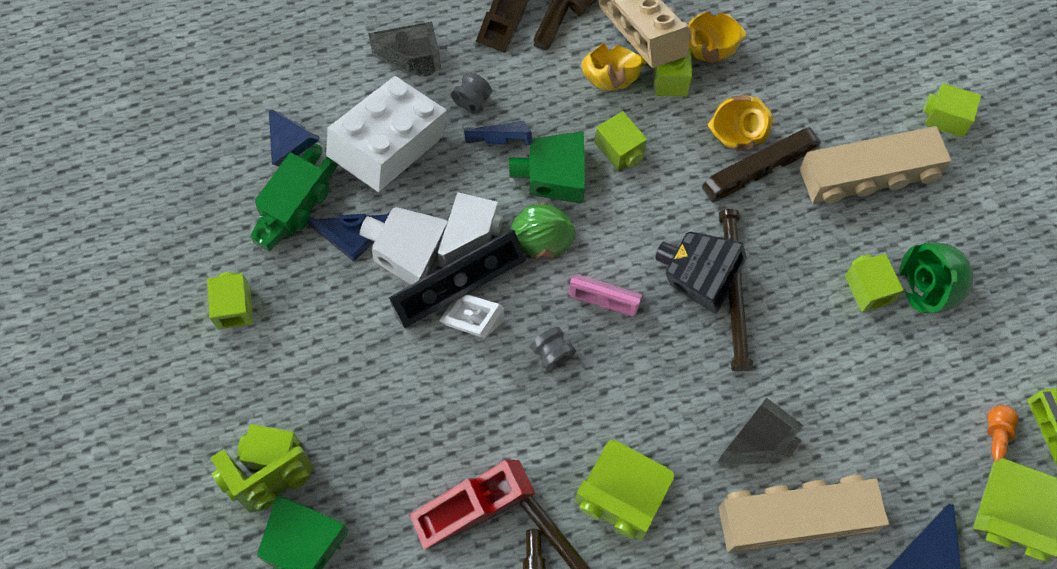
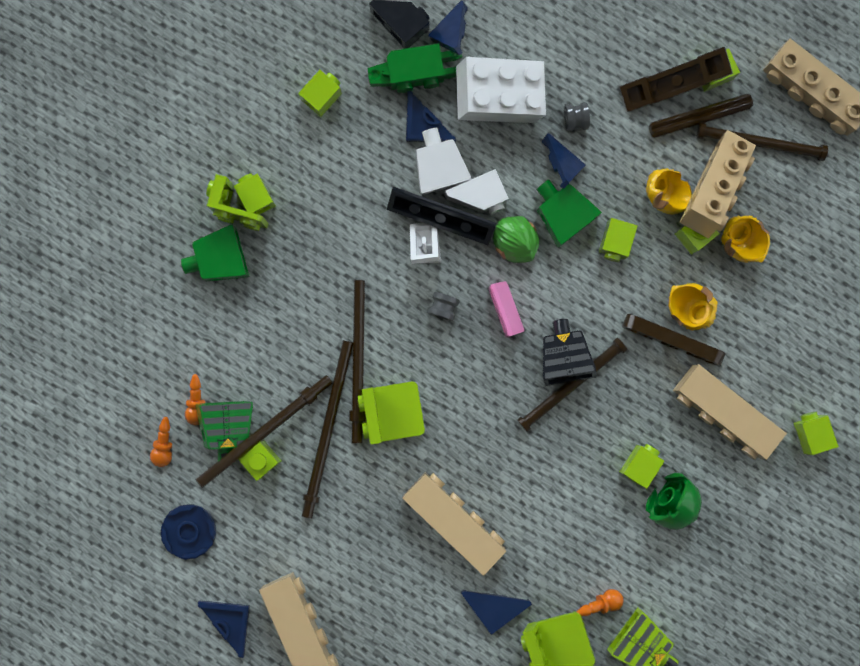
camera: 45 degrees right, 20 degrees up
(233, 173) = (401, 20): none -> black slope
(408, 49) = (576, 50): clear smoke slope -> none
(472, 503) = (316, 333): red slope -> none
(597, 530) = (358, 361): none -> dark brown bar
(763, 438) = (486, 469): clear smoke slope -> none

